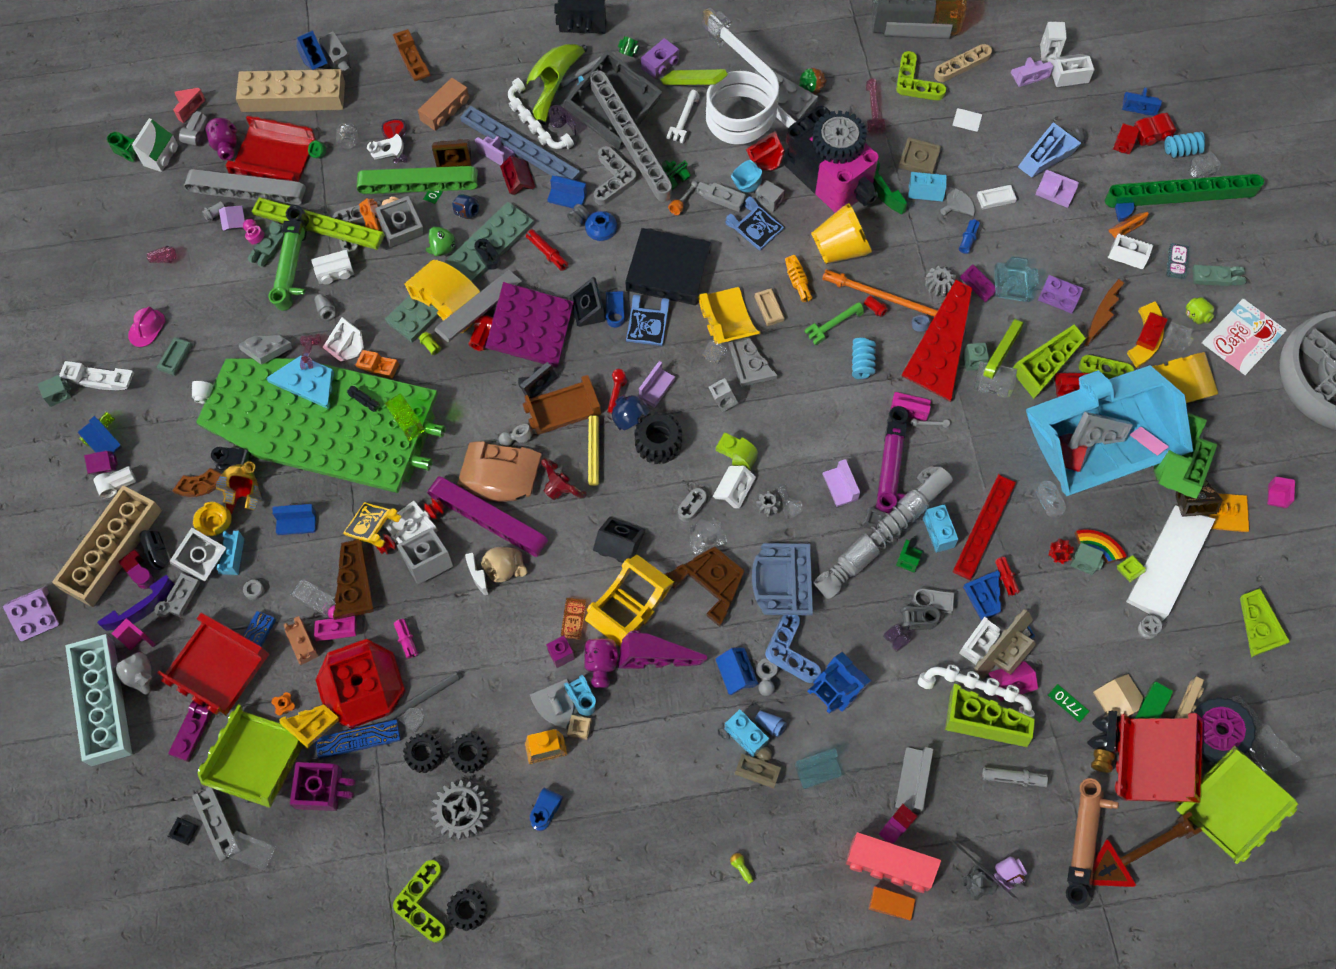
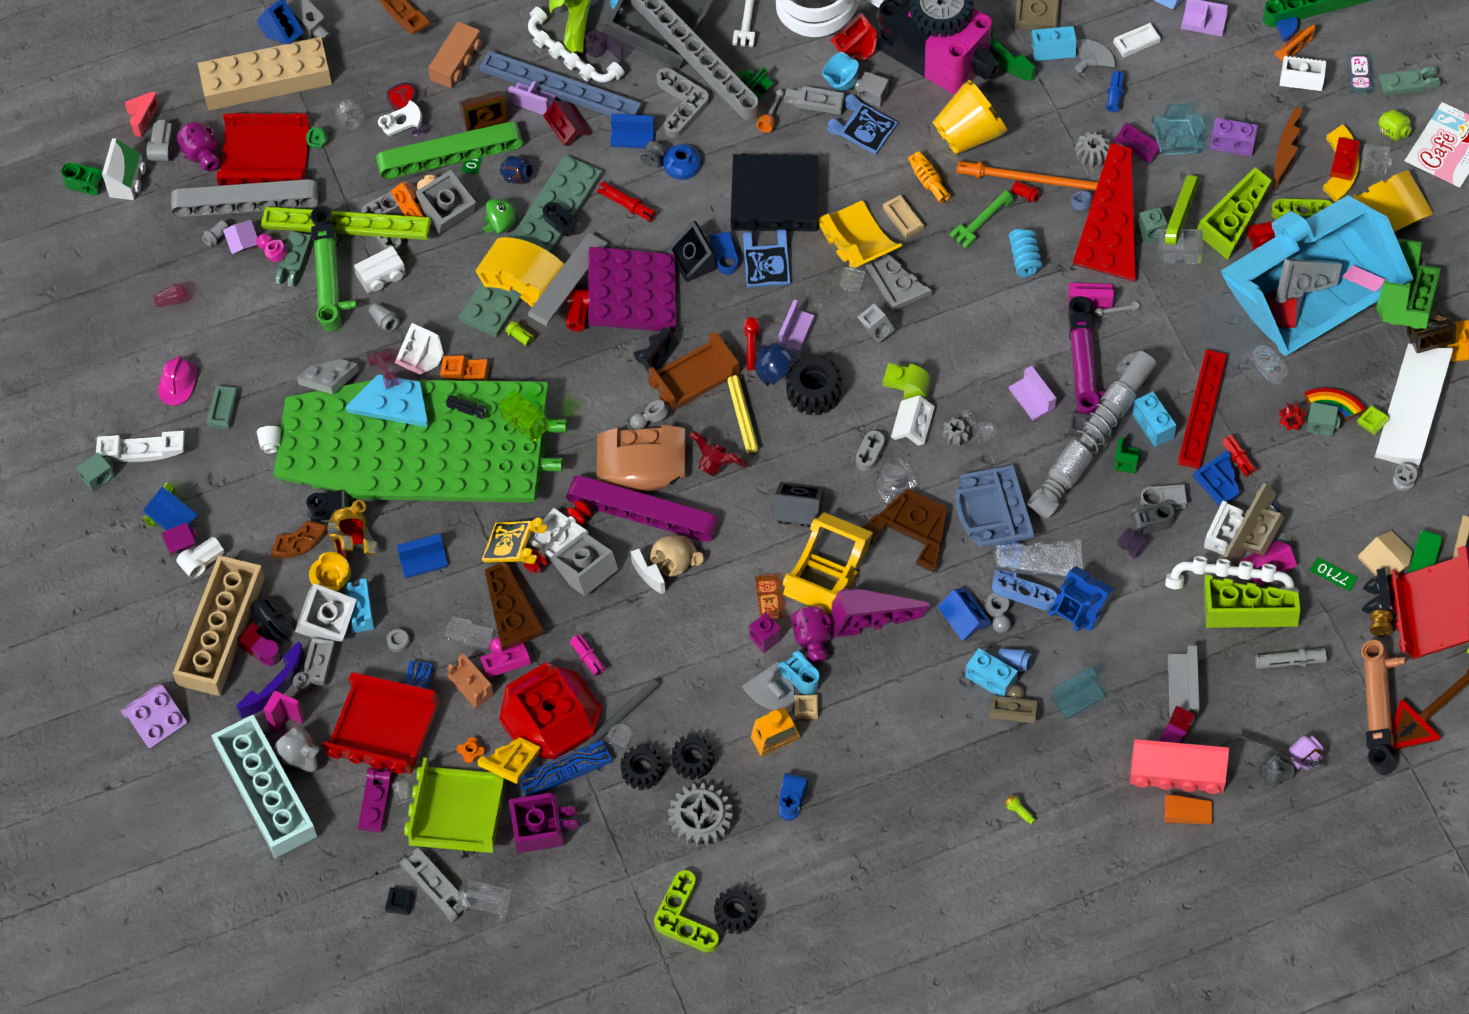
camera: 10 degrees left, 5 degrees down
(213, 729) = (402, 792): none -> clear hose
(813, 636) = (1039, 559): none -> clear wing

